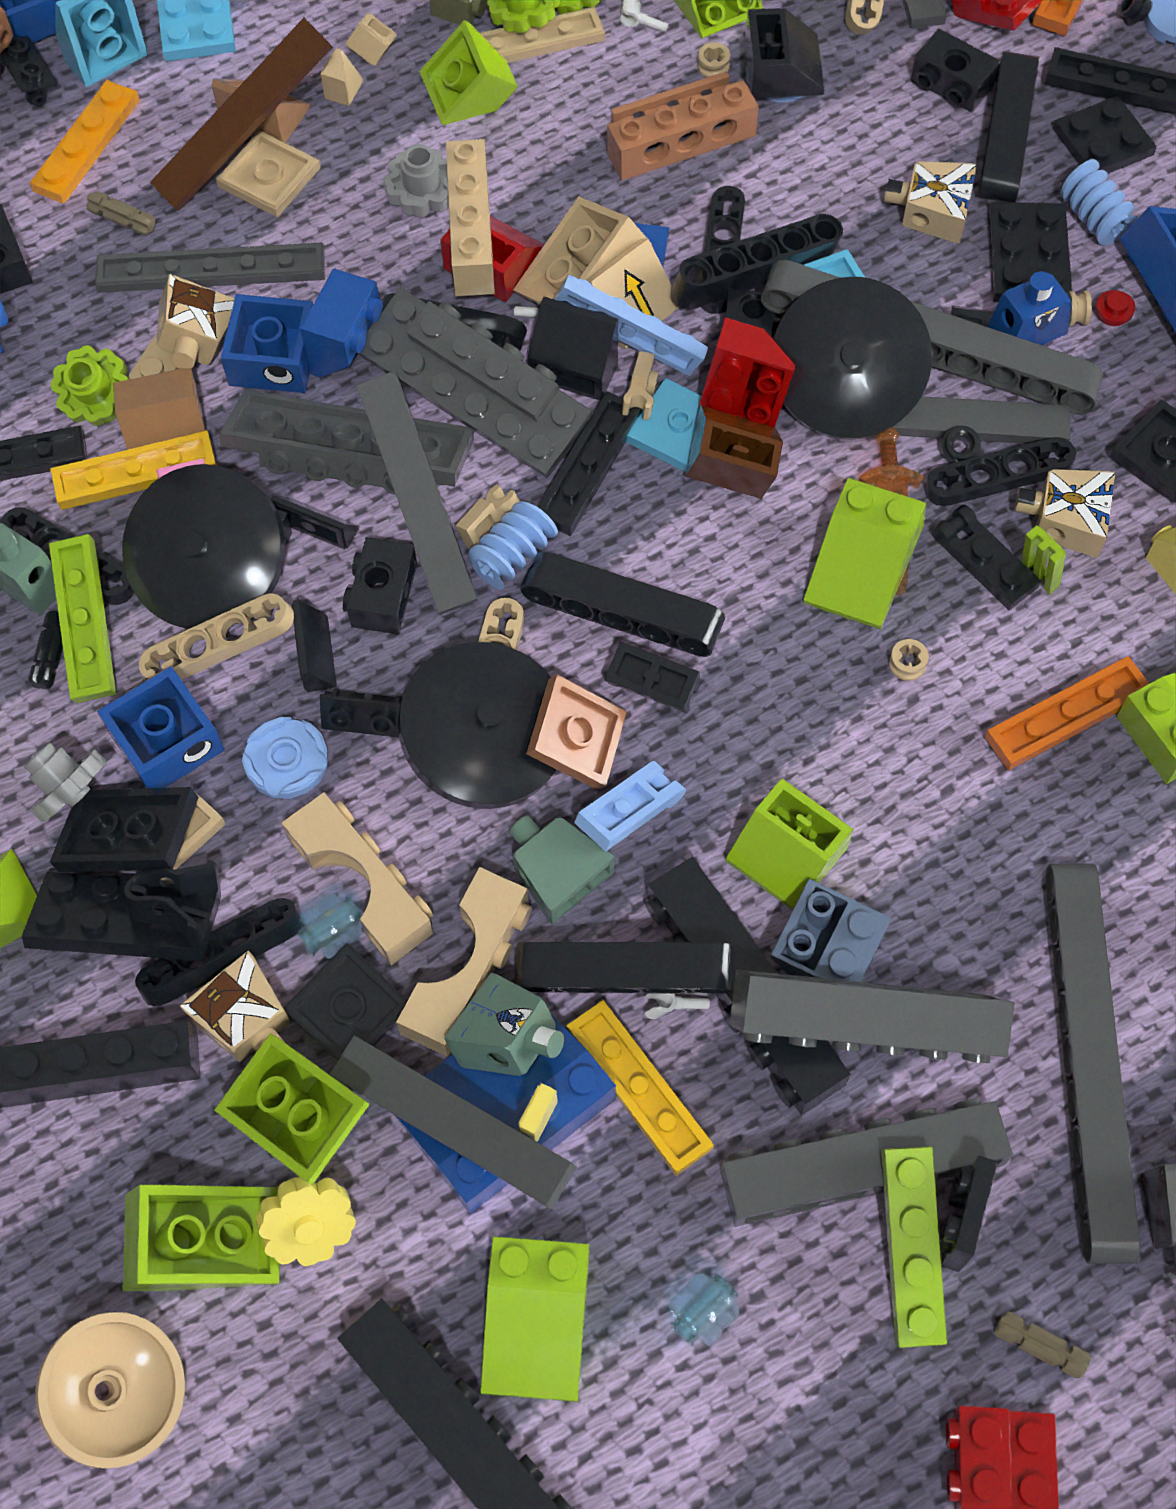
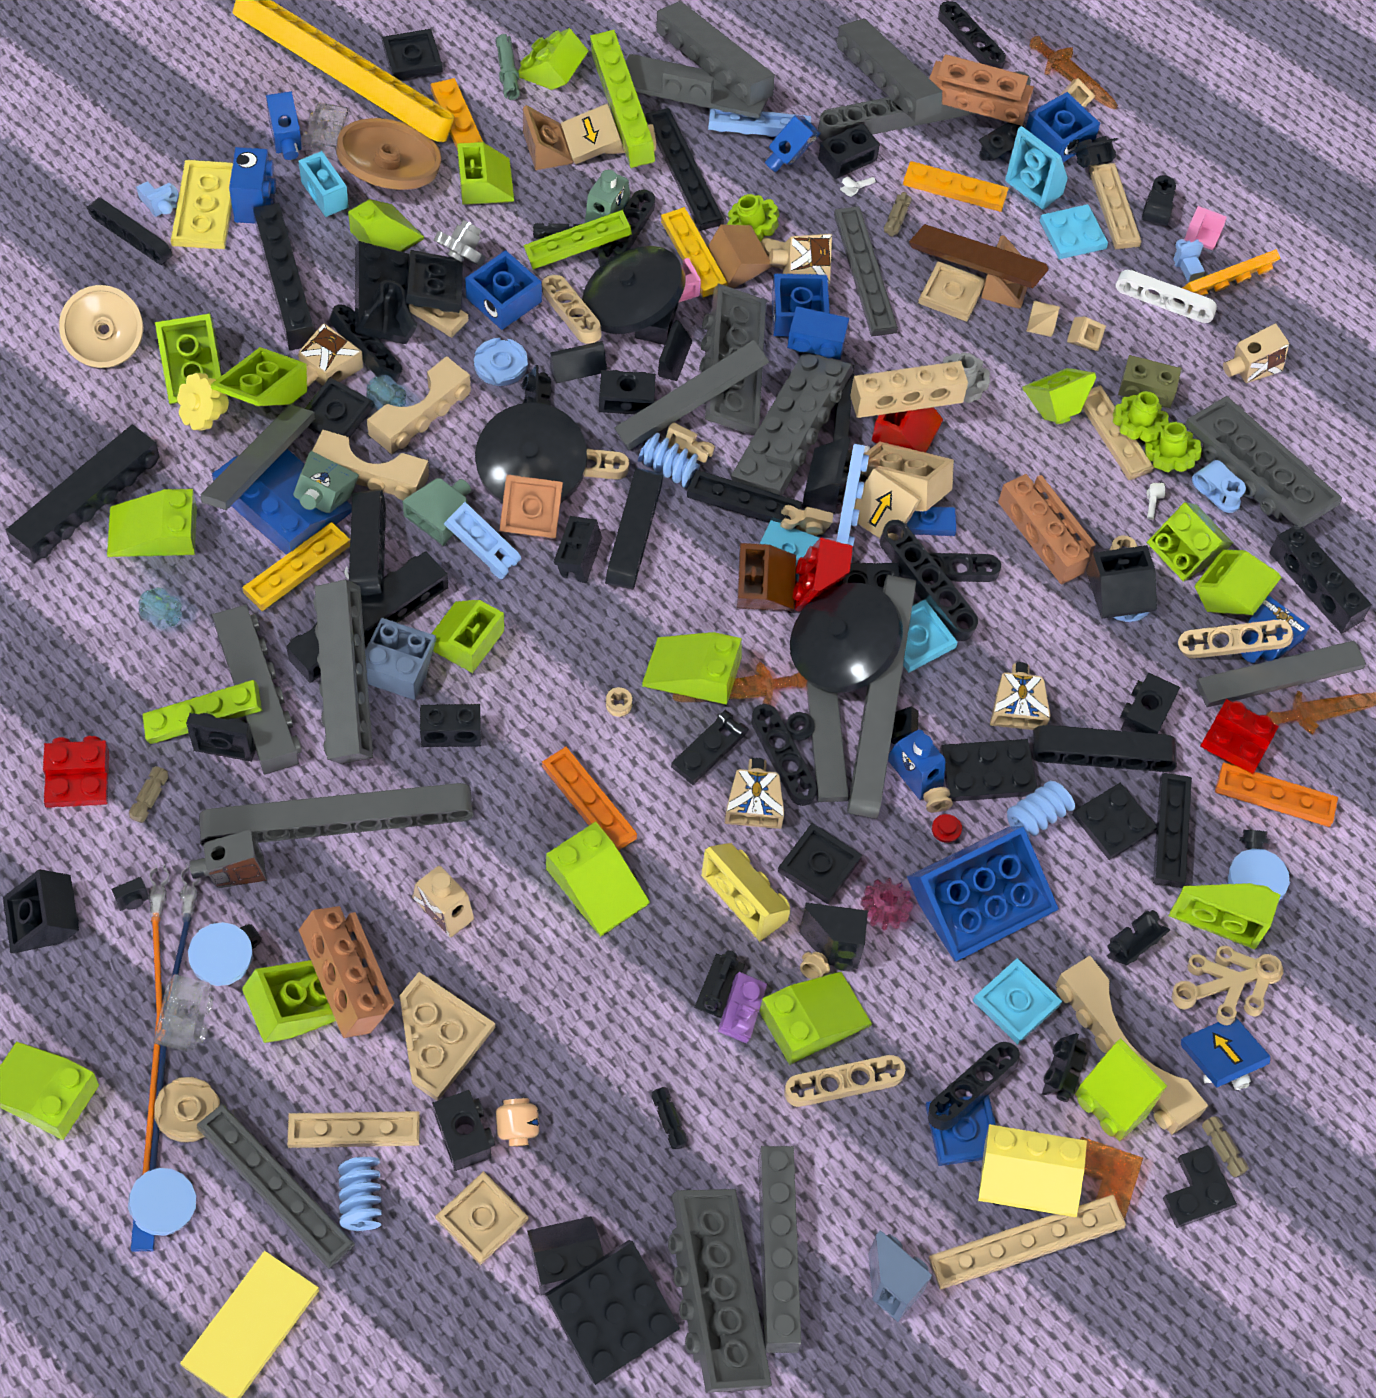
camera: 75 degrees right, 5 degrees down
(55, 261) = (852, 187): none -> white hand
(538, 1112) = (261, 493): light yellow tile -> none
(948, 880) = (450, 725): none -> black brick
(1037, 554) = (696, 771): lime tile -> none

